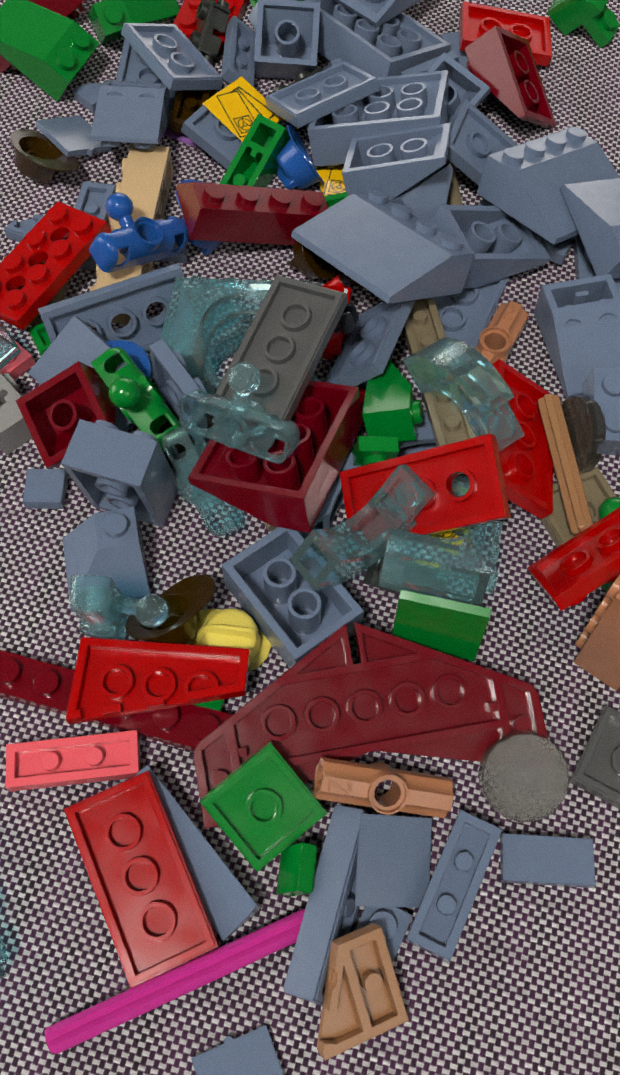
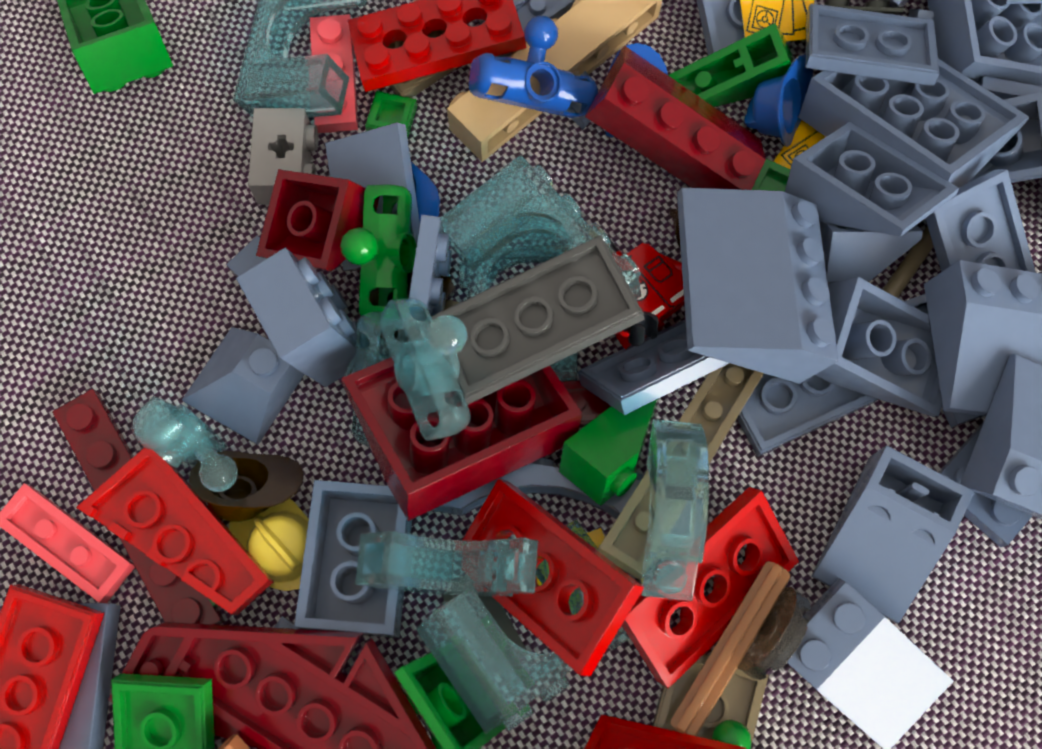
camera: 40 degrees right, 10 degrees up
(126, 297) = (469, 135): sand blue plate -> none
(374, 449) = (546, 489): green plate -> none
(502, 332) = (805, 455): nougat piece -> none

